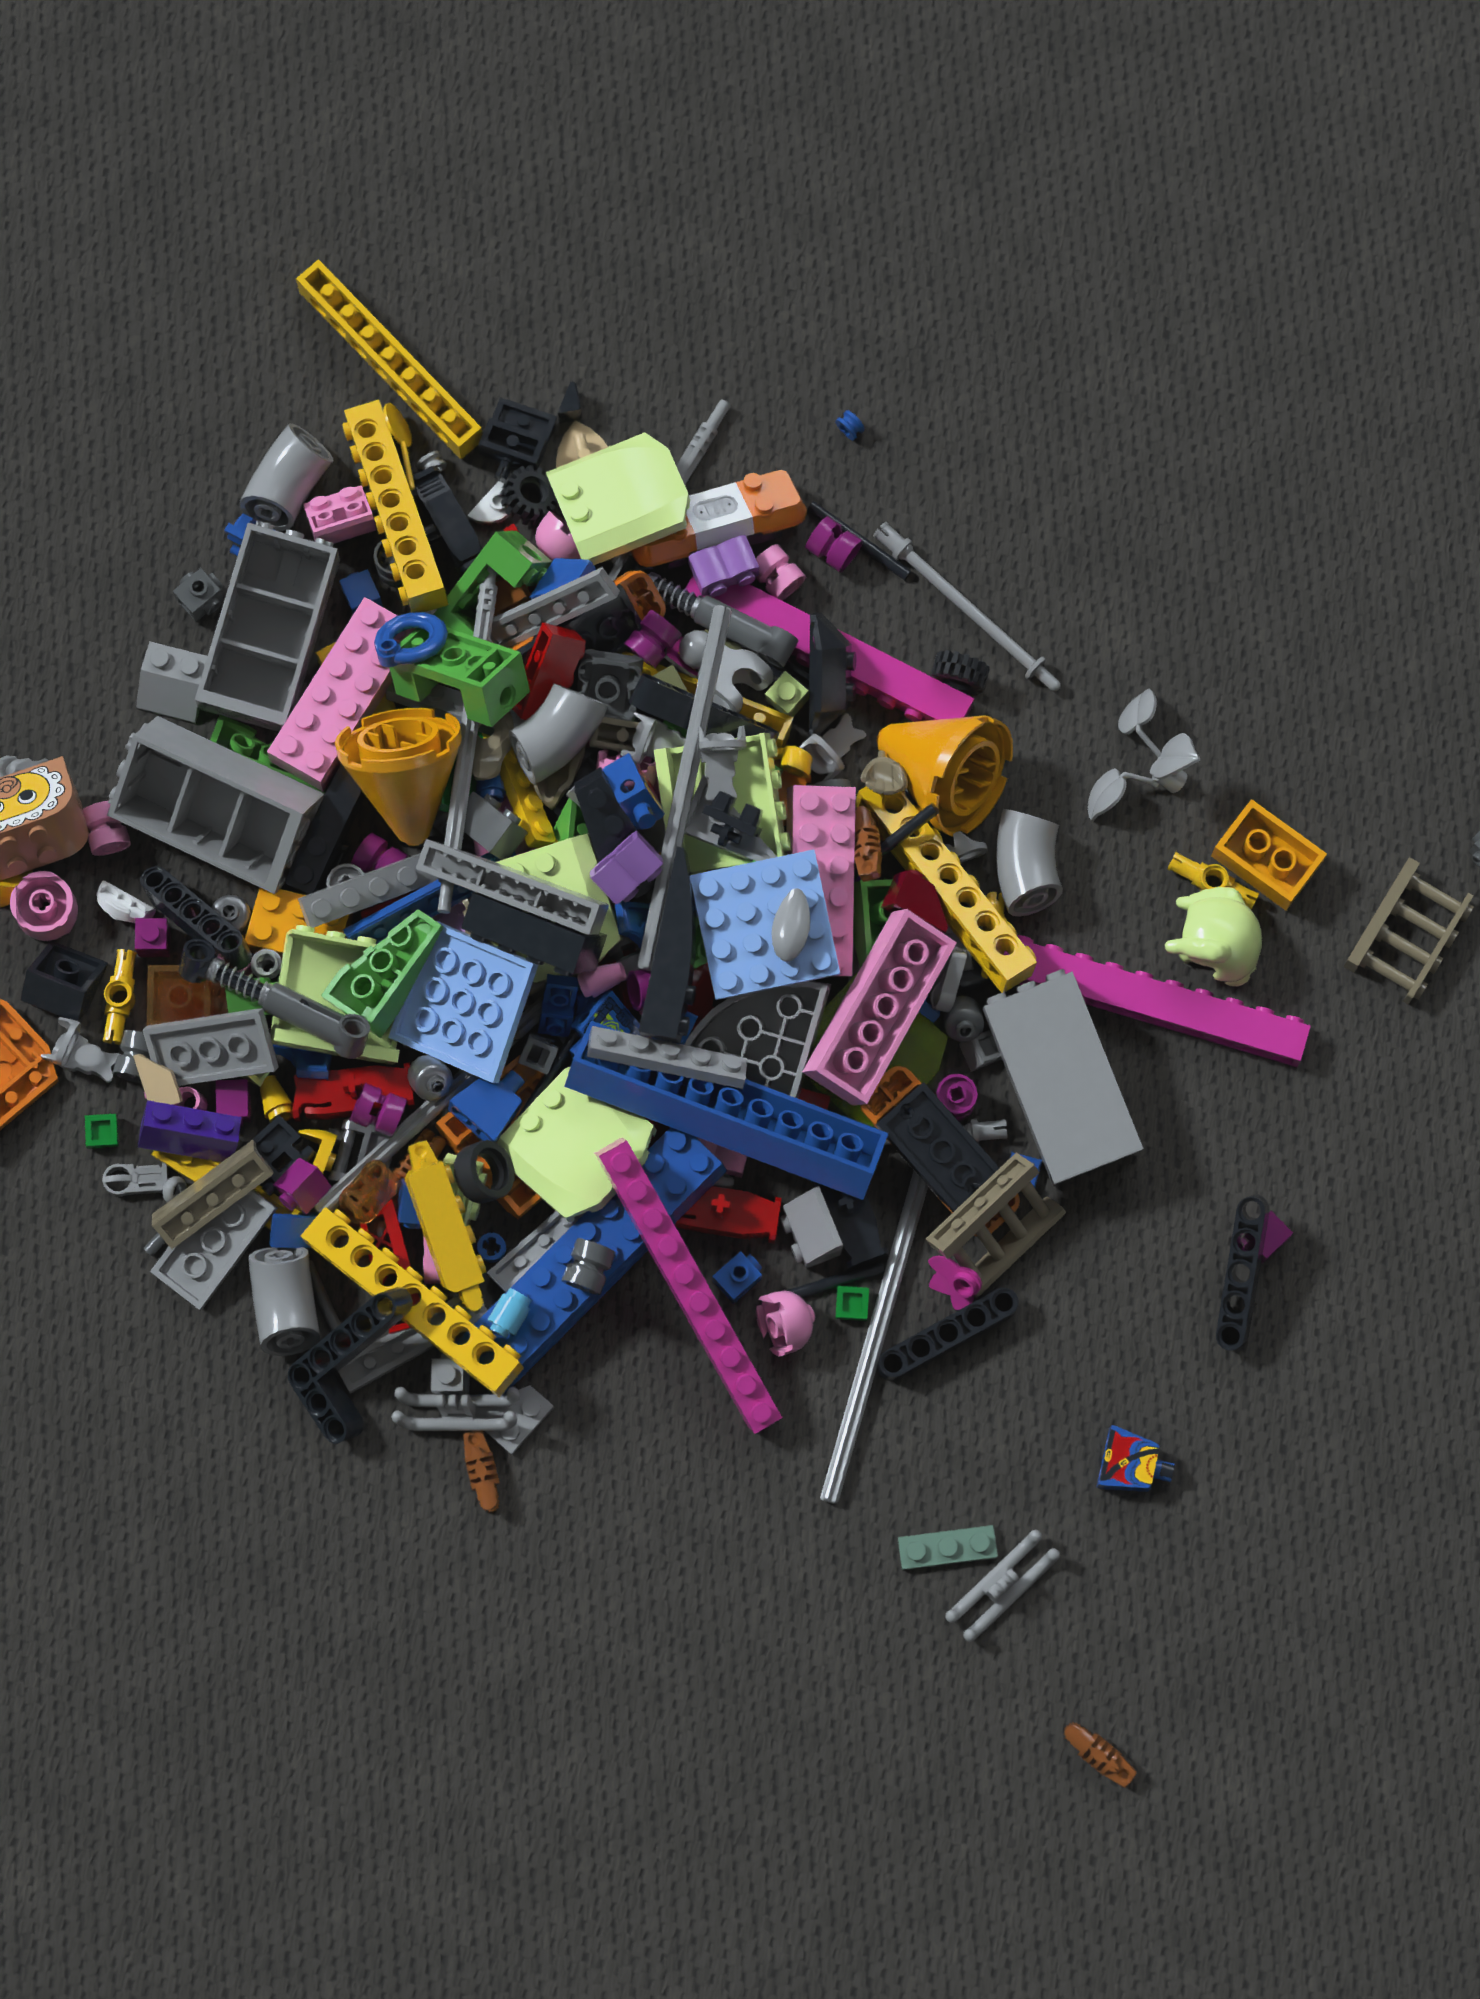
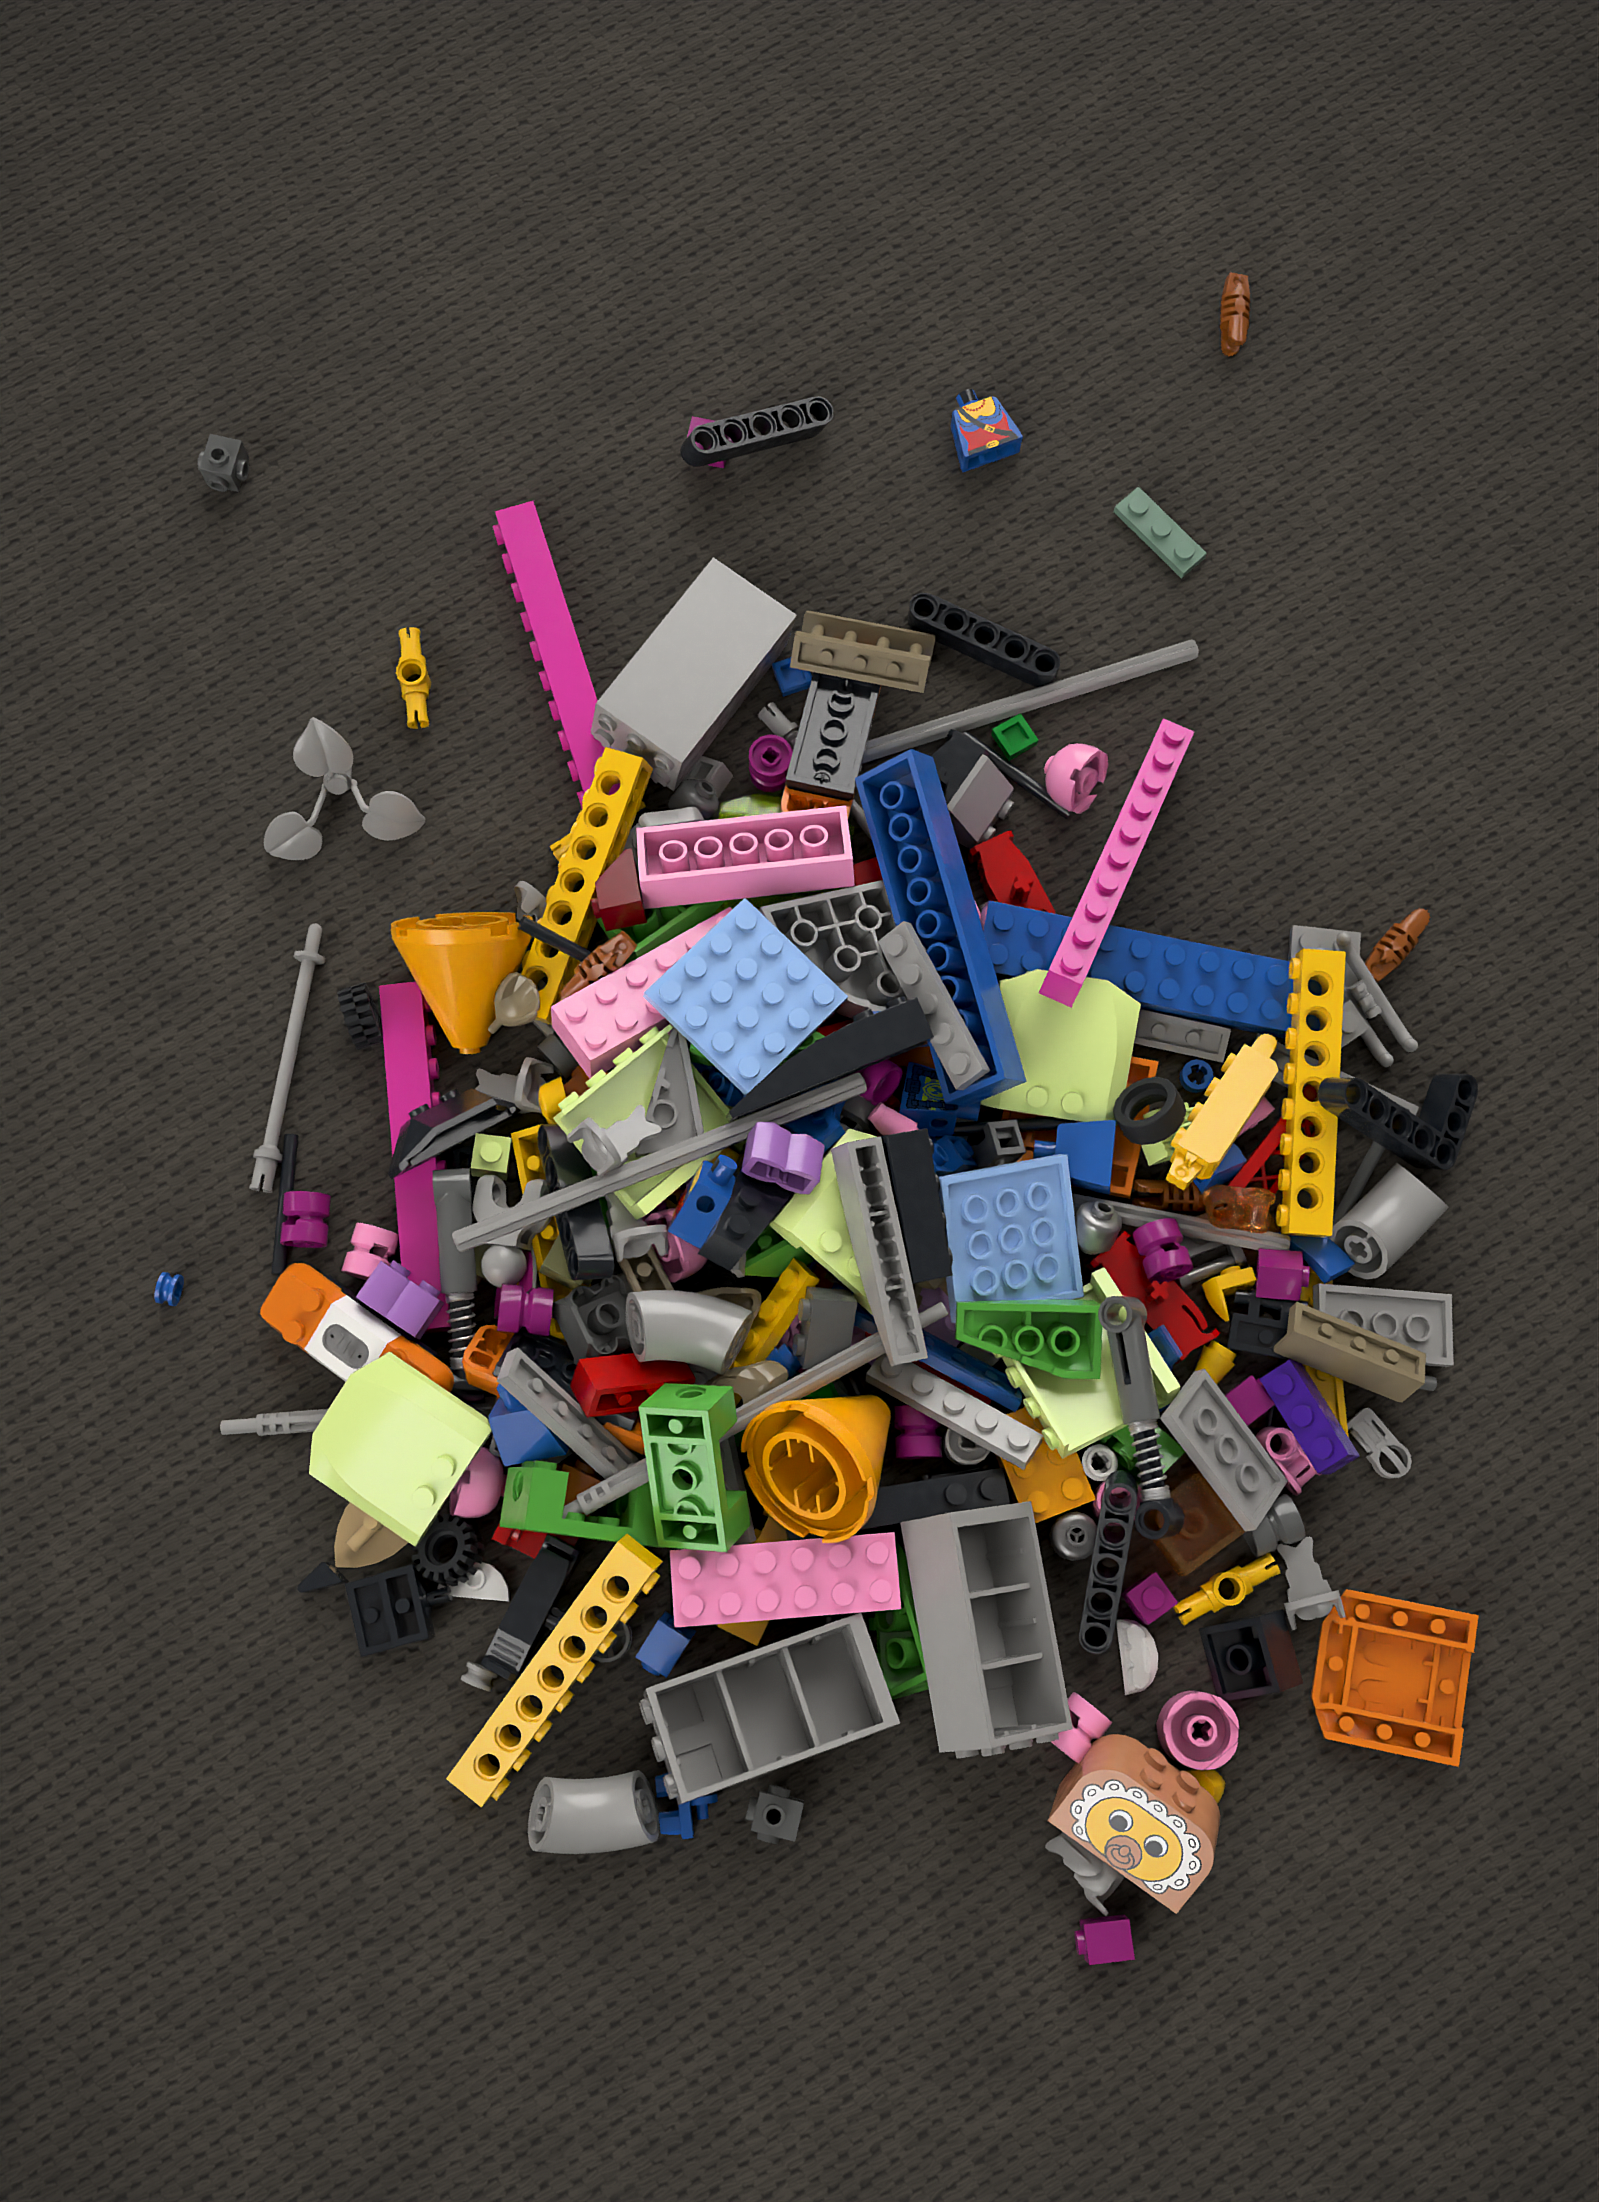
camera: 125 degrees left, 0 degrees up
(101, 1131) = (1361, 1510): green plate -> none
(158, 1081) = (1289, 1480): tan tile -> none
(169, 1187) = (1362, 1399): light grey piece -> none
(170, 682) = (884, 1773): light grey slope -> none
(340, 515) = (597, 1727): bright pink slope -> none
(389, 359) = (392, 1805): yellow brick -> none
(391, 653) = (718, 1526): blue piece -> none
(402, 434) = (467, 1729): yellow piece -> none
(509, 1313) = (1261, 995): medium azure brick -> none
(588, 1266) = (1178, 946): dark grey wheel -> none
(738, 1276) = (1064, 844): blue brick -> none
(747, 823) = (671, 1087): black hips -> none
(791, 926) = (735, 960): light grey arm -> none
(955, 1281) = (935, 645): dark pink plate -> none
(1002, 1586) = (1160, 469): light grey piece -> none
(1027, 863) = (504, 841): light grey brick -> none
(1219, 934) = (463, 627): yellowish green piece -> none
(1268, 854) = (357, 642): light orange brick -> none
(1395, 905) = (355, 521): dark tan fence -> none

